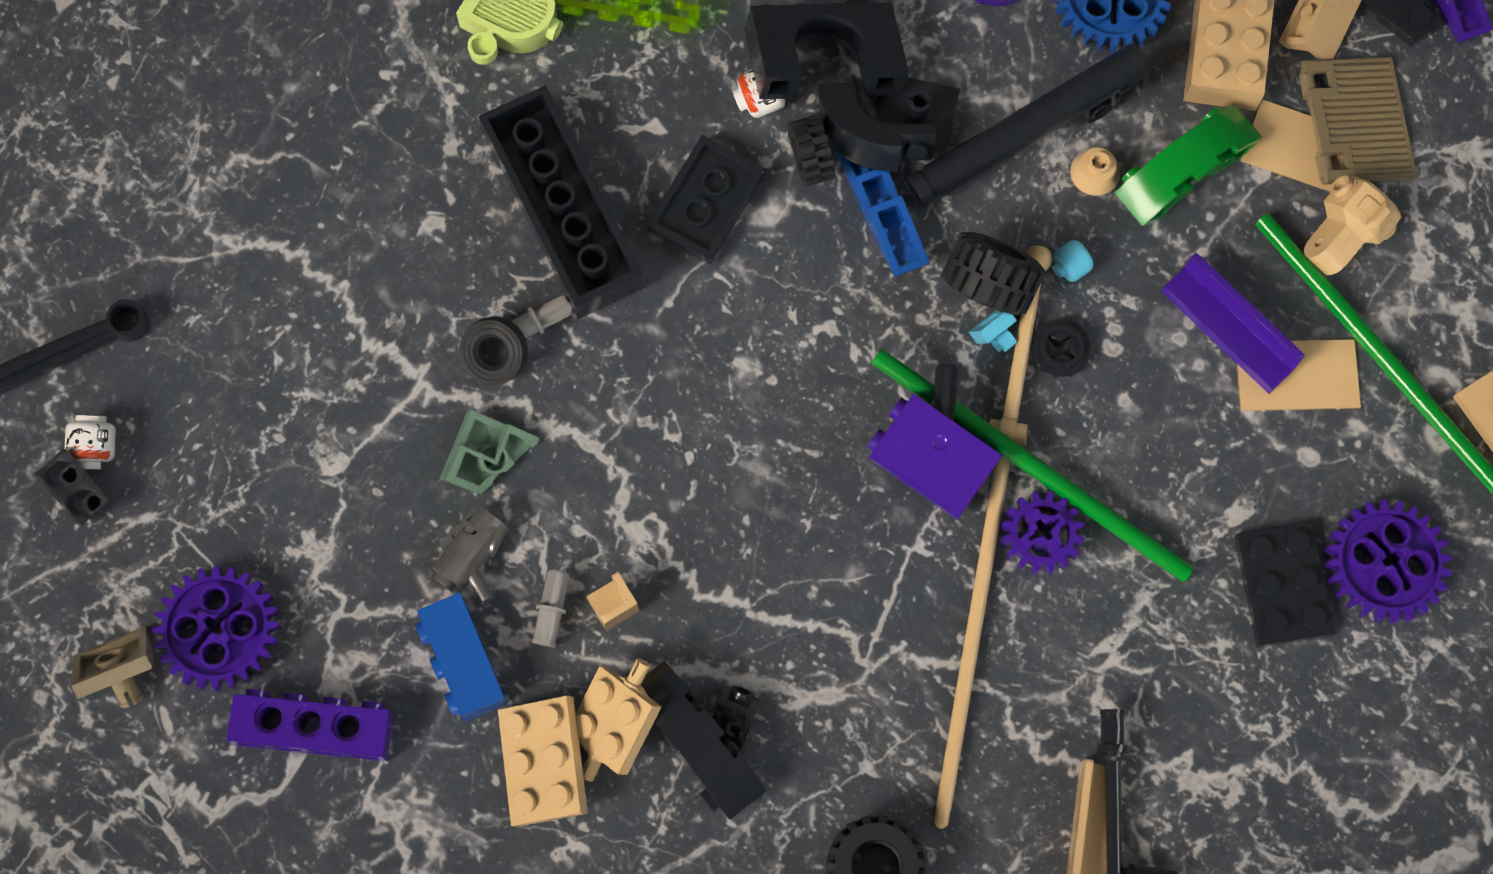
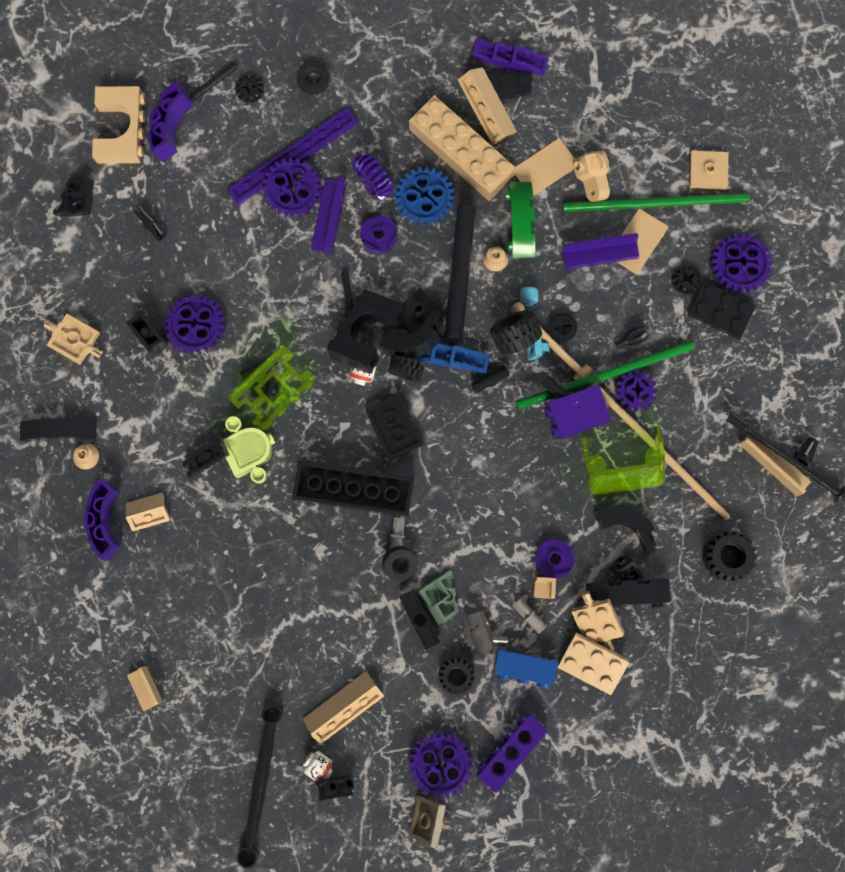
camera: 50 degrees left, 5 degrees up
(43, 110) = (145, 688): none -> tan panel
(207, 420) = (342, 708): none -> tan panel
(359, 543) = (468, 676): none -> black tyre
(437, 420) = (426, 631): none -> black piece
(668, 566) = (564, 564): none -> dark purple plate
(816, 642) = (628, 517): none -> black arch
(891, 293) = (490, 379): none -> black pin
(914, 640) = (606, 481): none -> clear neon green windscreen
(1129, 470) = (633, 337): none -> black piece
(1277, 499) = (686, 287): none -> black gear
(1358, 119) = (549, 138): dark tan window -> none

